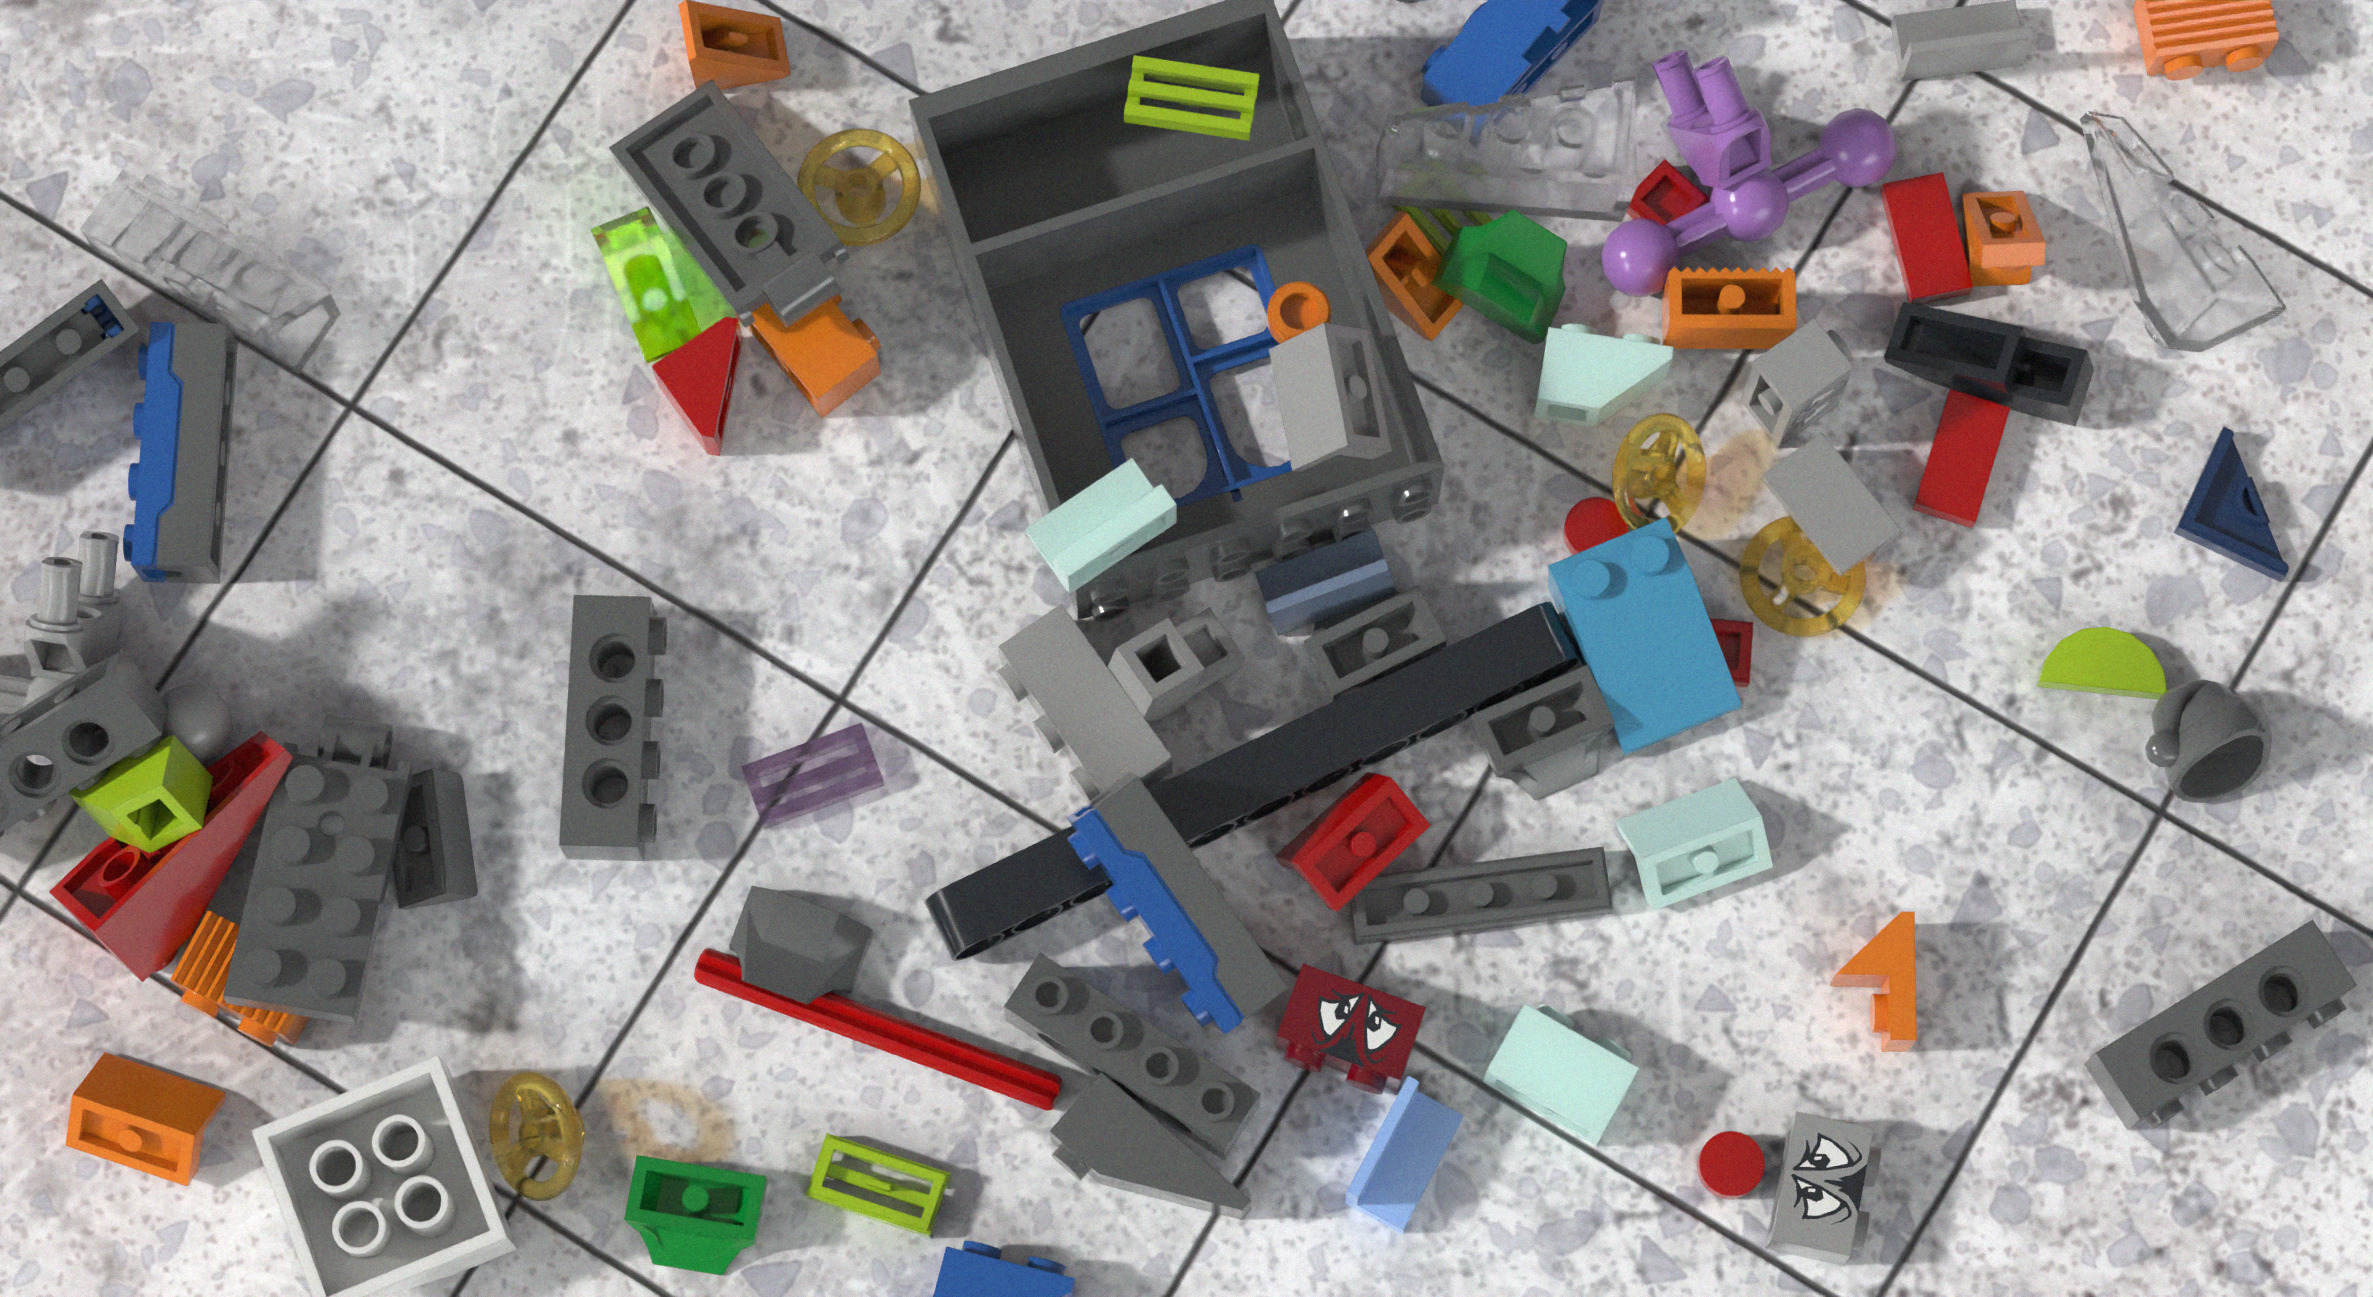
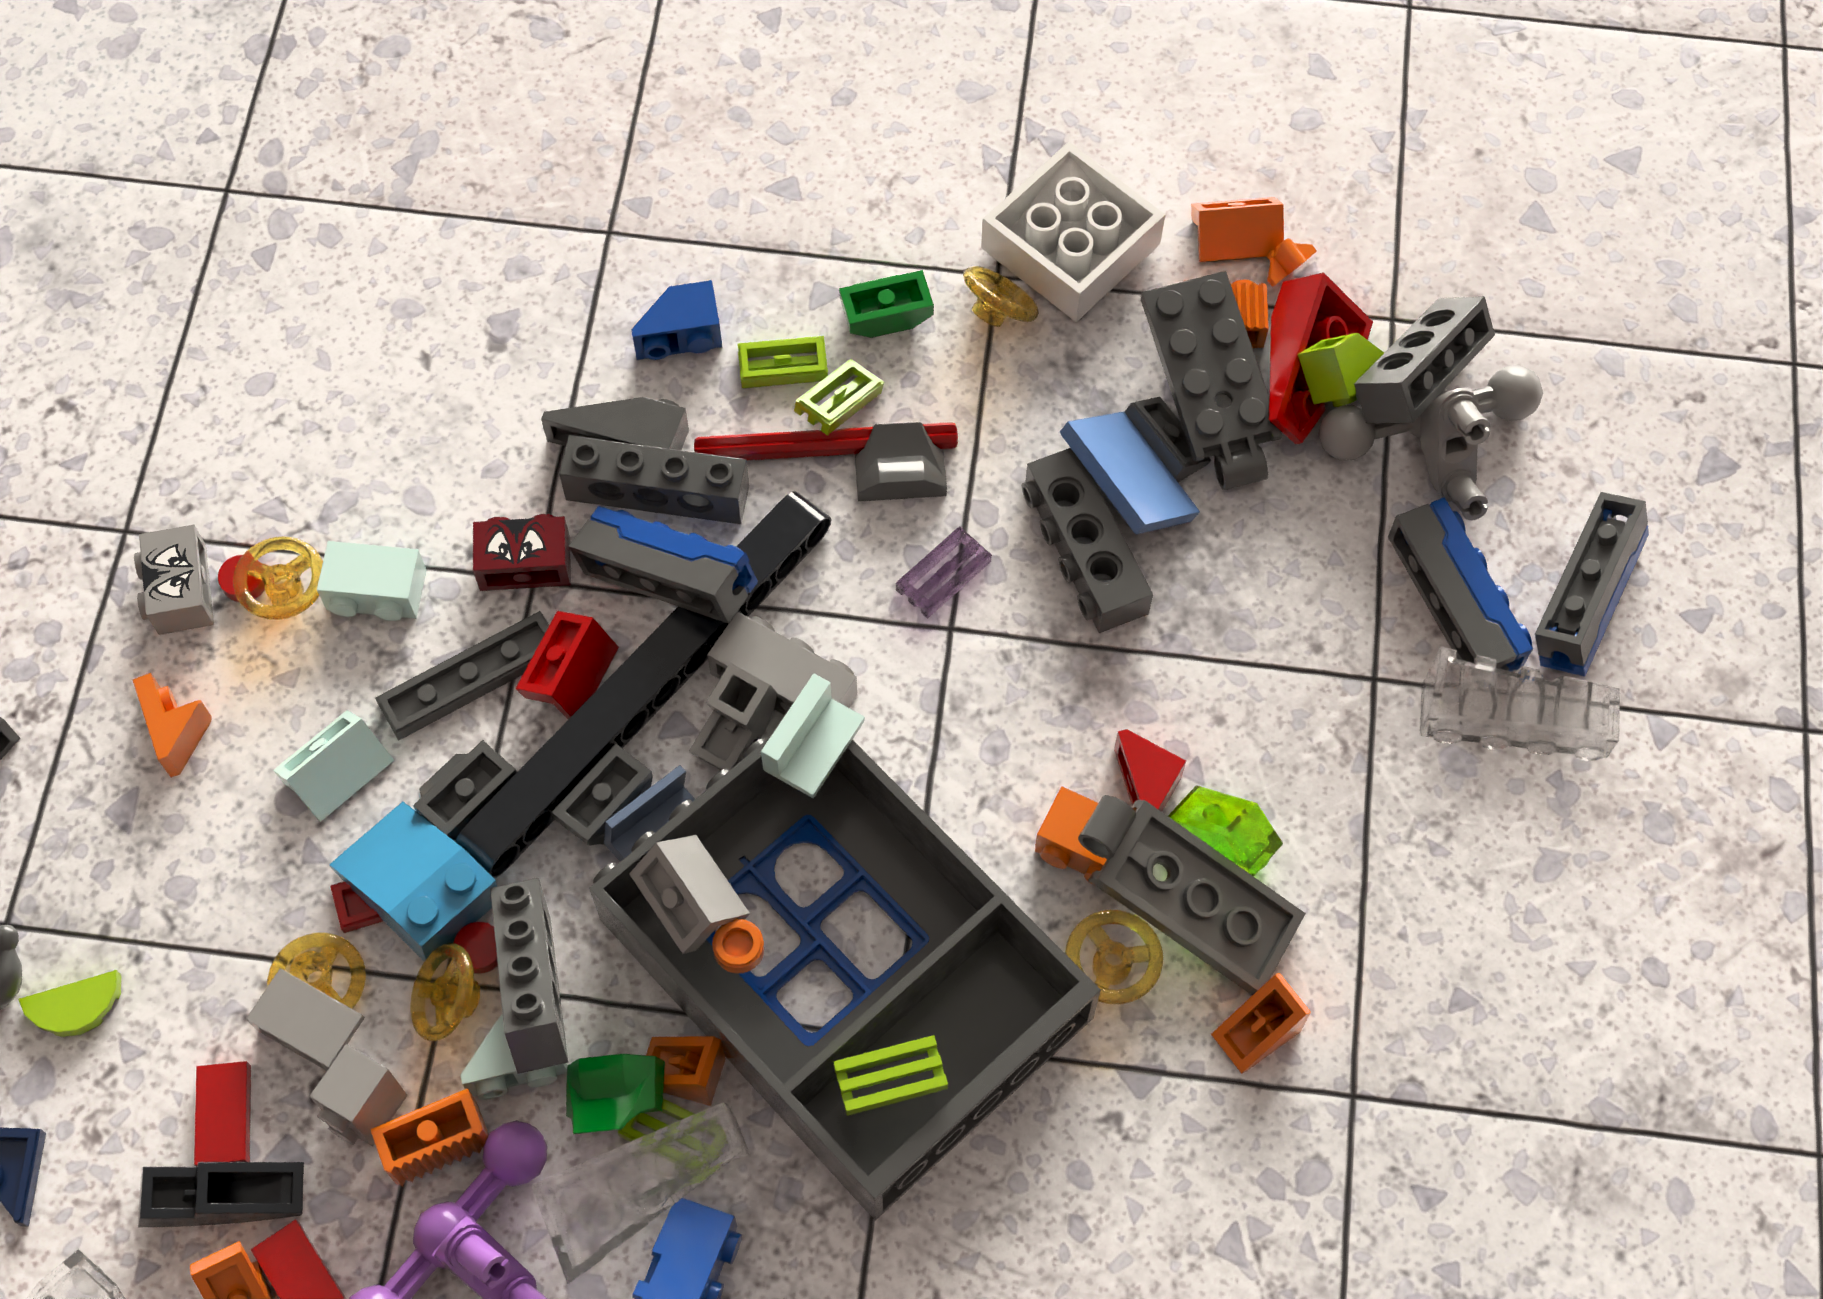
camera: 155 degrees right, 10 degrees down
(110, 1028) = (1286, 259): none -> orange piece
(507, 787) = (1129, 472): none -> medium blue tile
(876, 1058) = (820, 414): none -> lime tile
(1403, 1157) = (459, 497): light blue panel -> none
(1551, 427) = (528, 976): none -> dark grey brick
(1634, 1136) = (286, 598): none -> clear yellow piece
(1665, 195) = (514, 1220): red tile -> none

